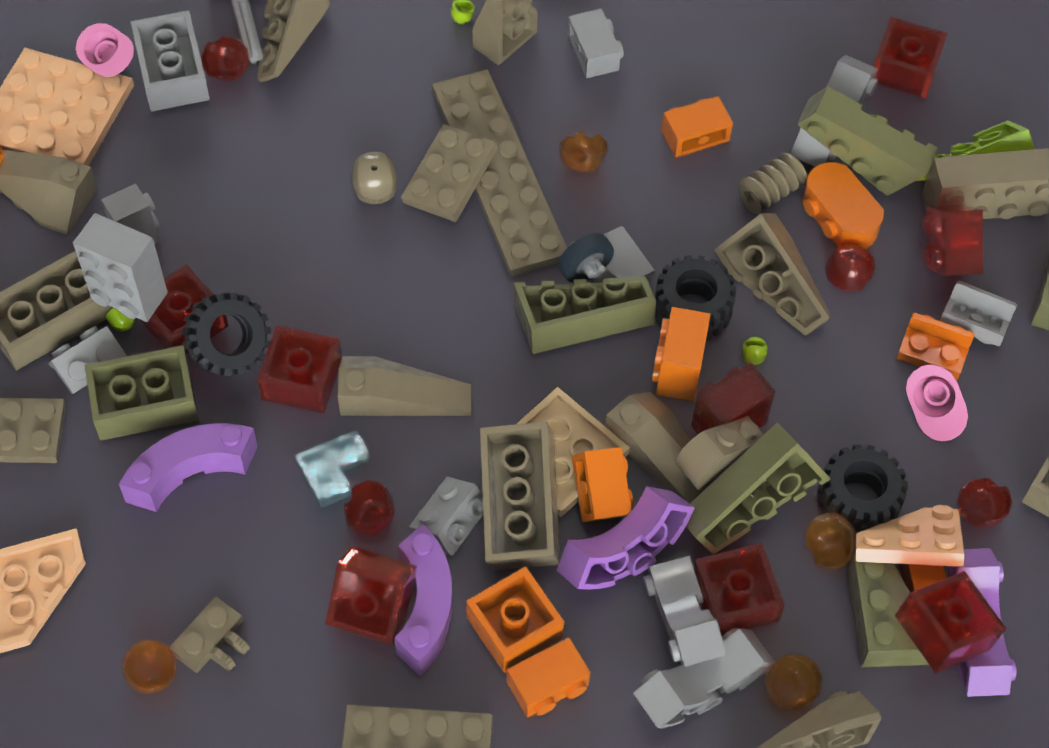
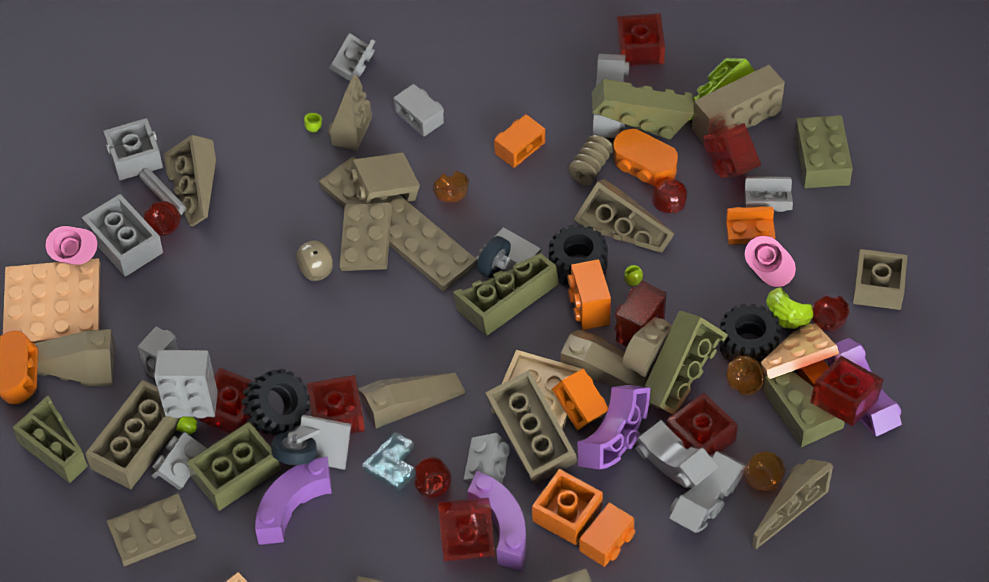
camera: 20 degrees left, 5 degrees down
(242, 400) = (313, 440): none -> light grey plate
(506, 108) = (383, 177): none -> dark tan panel
(925, 480) = (789, 313): none -> lime hair

